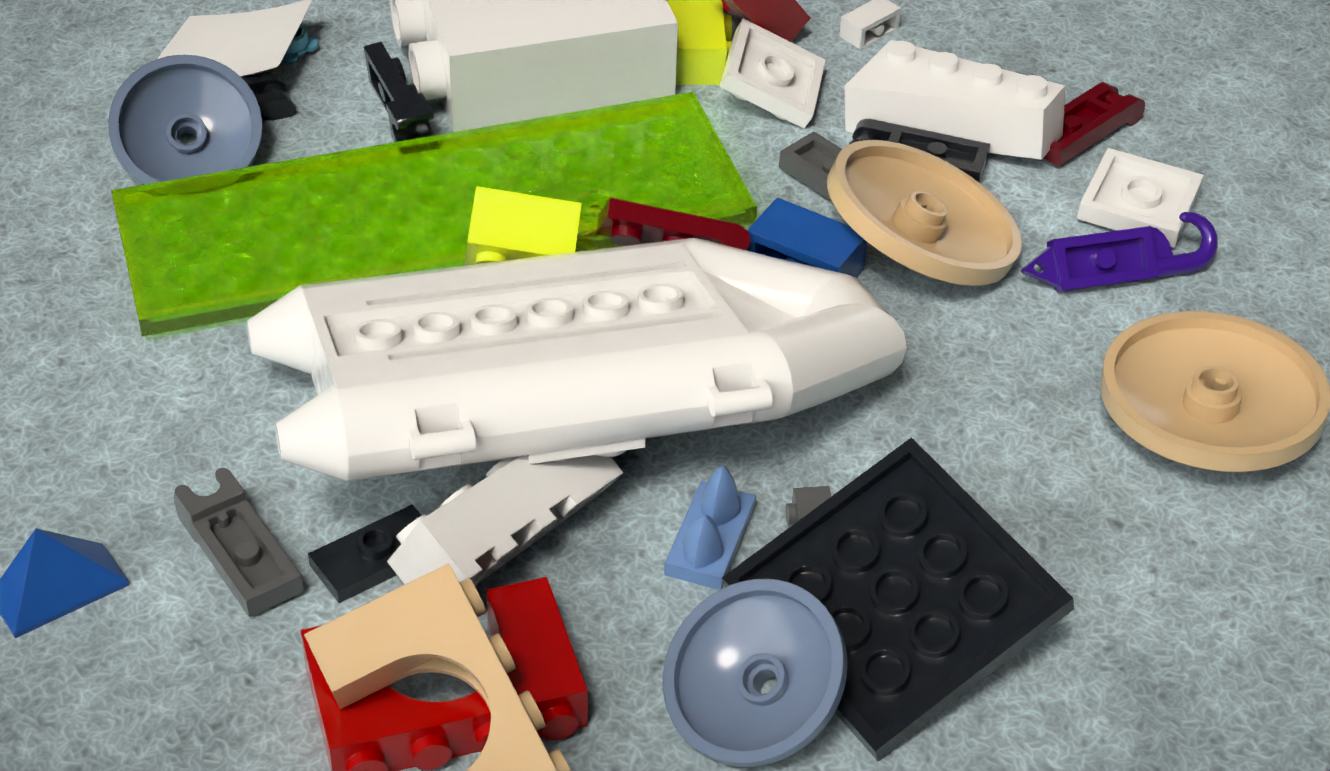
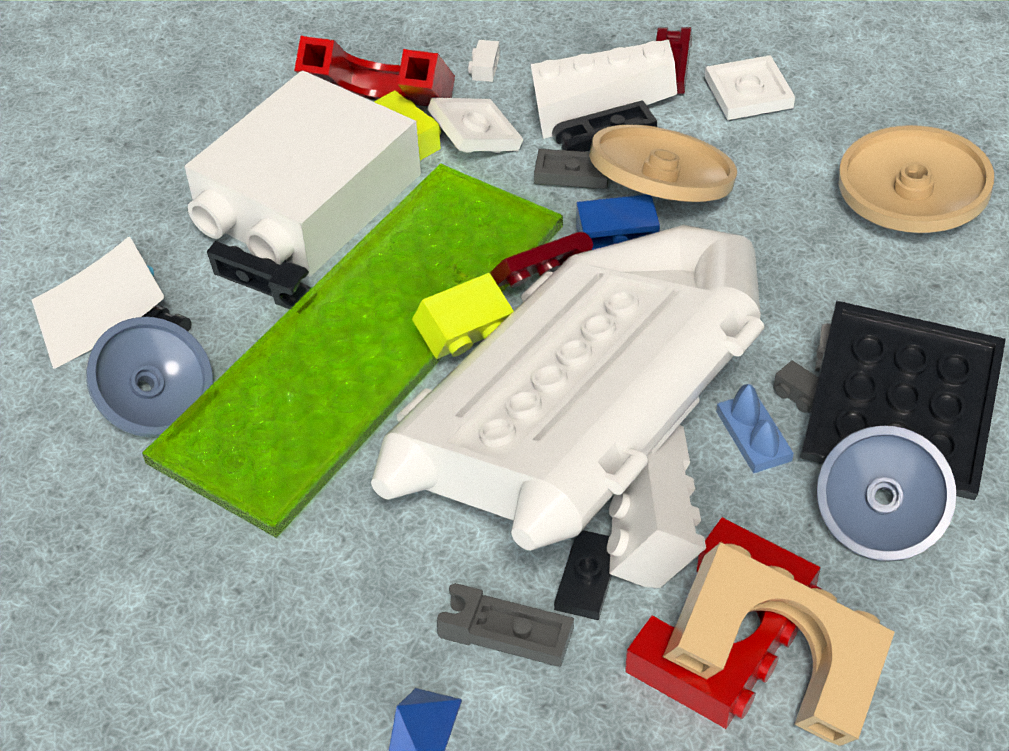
camera: 35 degrees left, 5 degrees up
(1120, 257) = (779, 130): dark purple plate -> none

